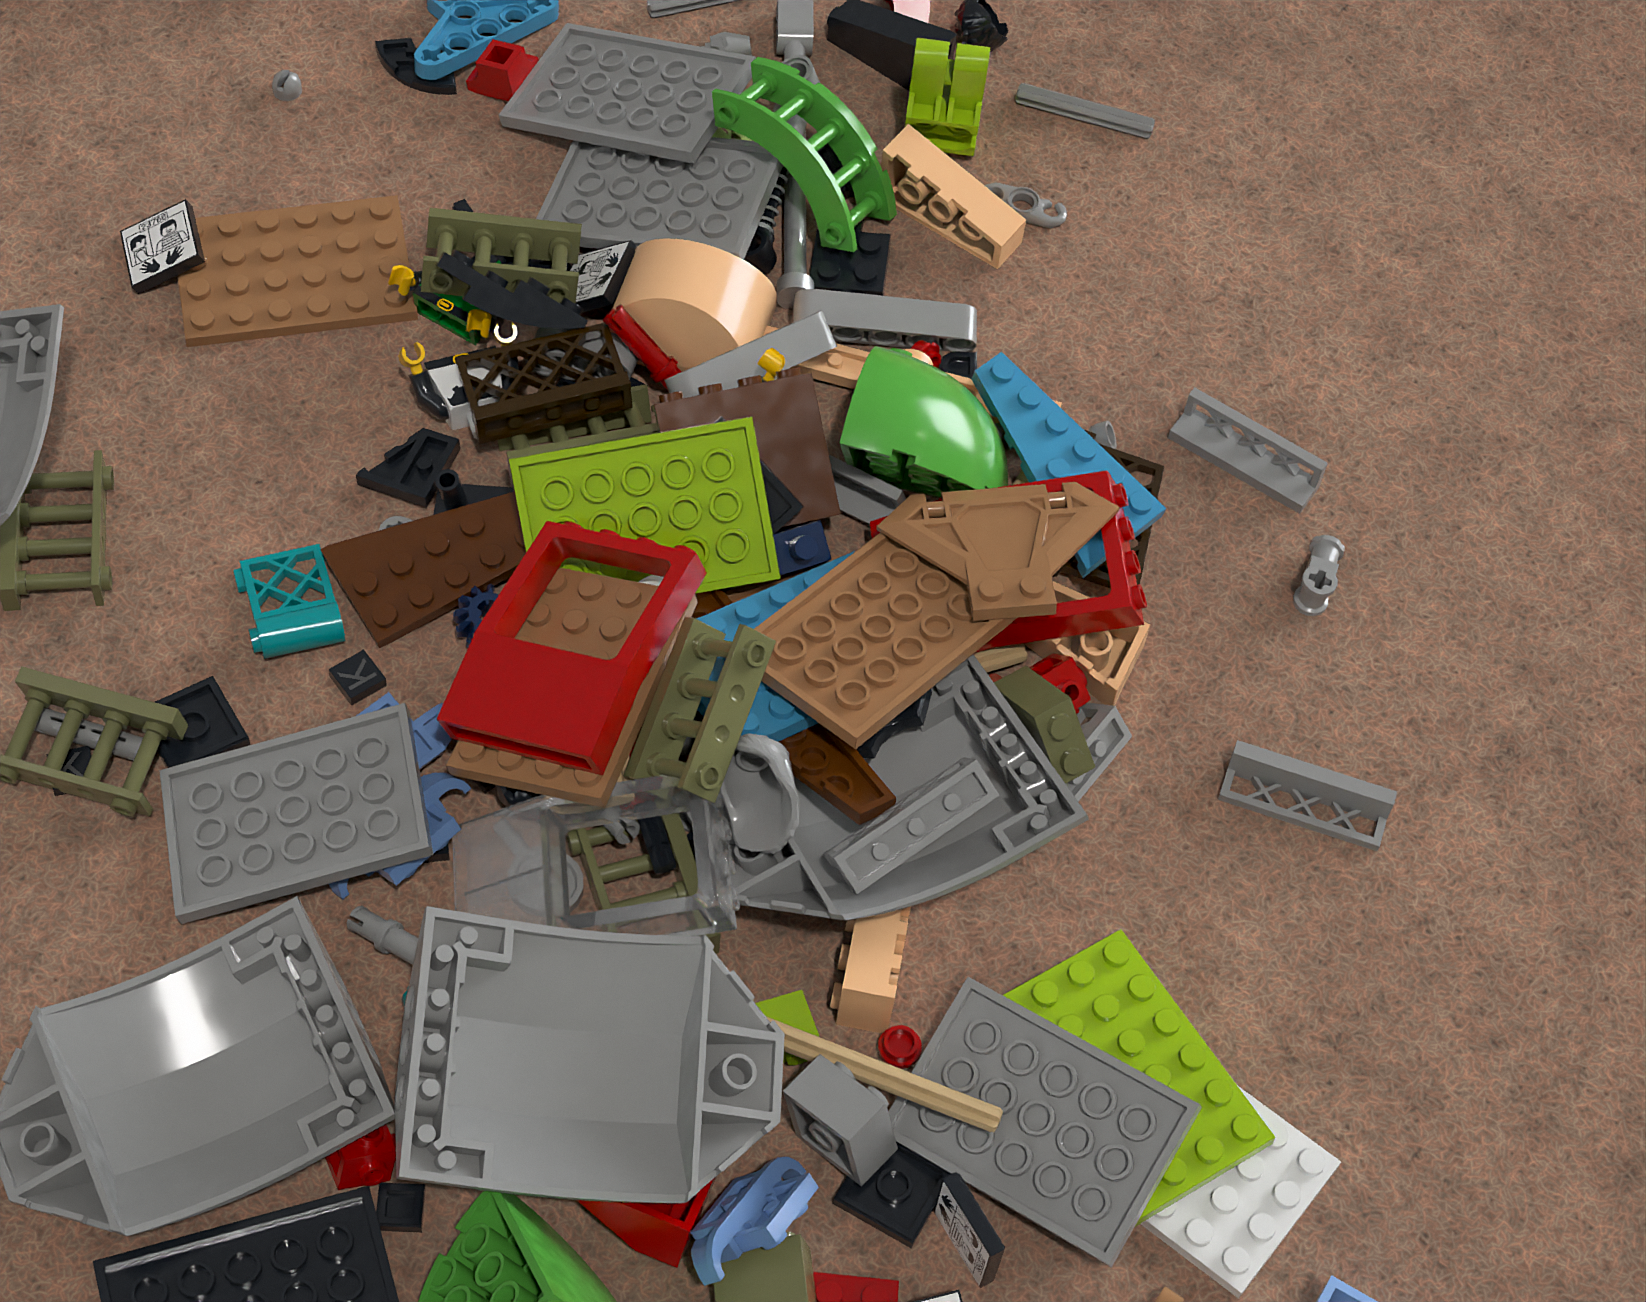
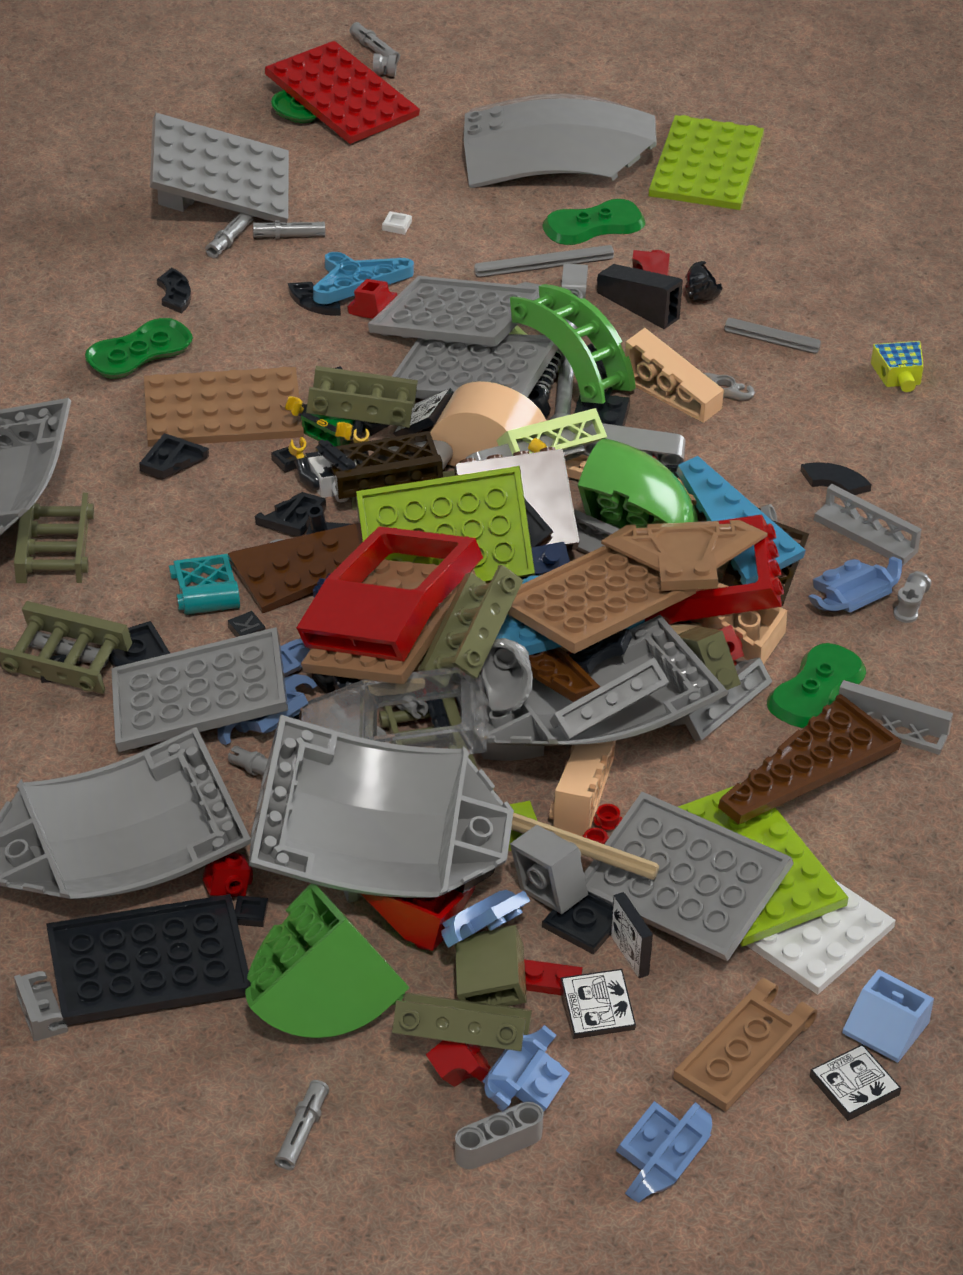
camera: 10 degrees right, 15 degrees down
(162, 246) = (136, 388): tile -> none
(180, 155) = (151, 341): none -> green plate
(210, 56) = (176, 289): none -> black tile
(223, 368) = (171, 456): none -> black wing
(292, 87) = (226, 306): light grey hinge -> none
(389, 365) = (284, 459): none -> black tile
(470, 377) = (334, 455): none -> black axle
(524, 304) = (376, 418): black slope -> none
(642, 345) = (448, 440): red pin -> none
(781, 322) = (572, 422): none -> yellowish green fence
(915, 990) = (607, 817): none -> red plate
(947, 94) = (674, 313): lime connector -> none
(1184, 758) = (815, 683): none -> green plate
(1193, 361) = (827, 473): none -> black tile
(1219, 871) = (824, 750): none -> reddish brown wing
(1237, 558) = (855, 585): none -> medium blue plate
(1269, 159) = (898, 364): none -> neon yellow torso

